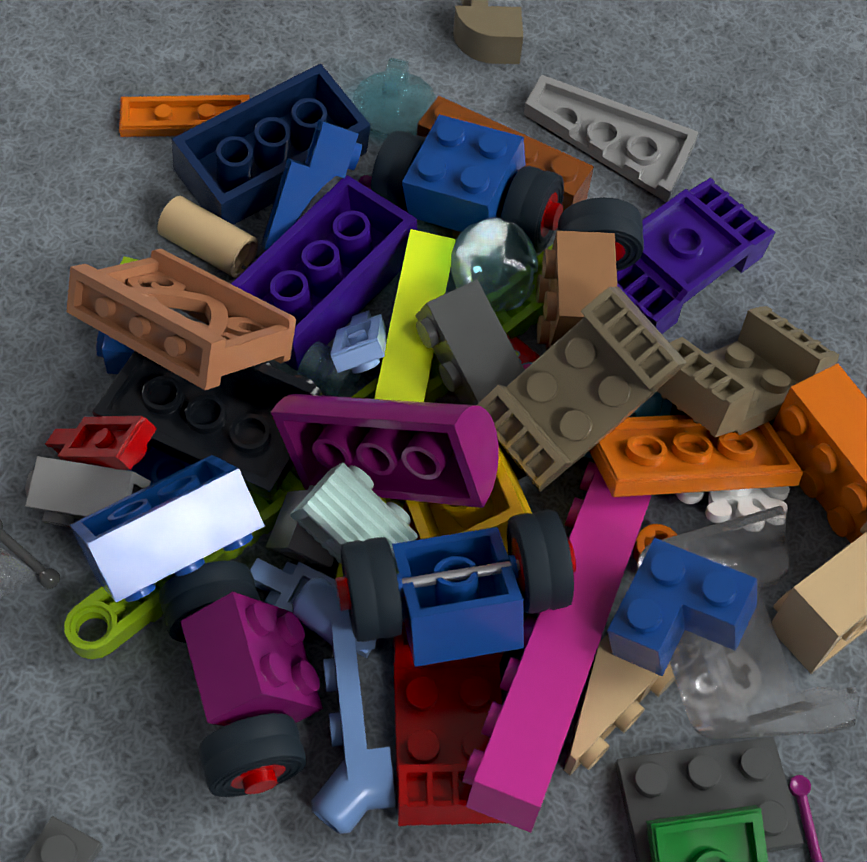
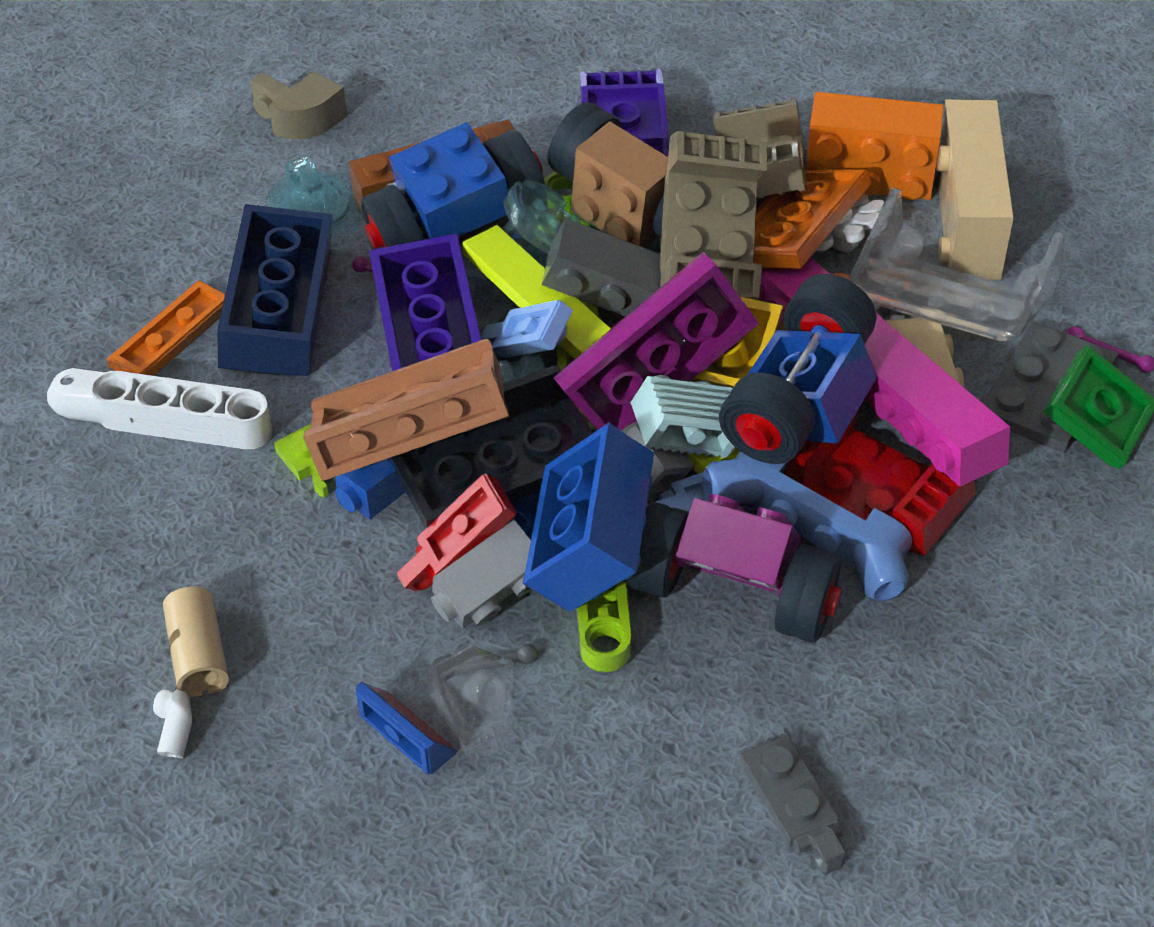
camera: 45 degrees left, 10 degrees down
(97, 166) = (164, 407): none -> white piece
(207, 236) = (308, 378): tan pin -> none
(329, 155) = (346, 283): blue slope -> none
(621, 137) = (494, 95): light grey wing -> none
(677, 594) = (915, 278): blue brick -> none

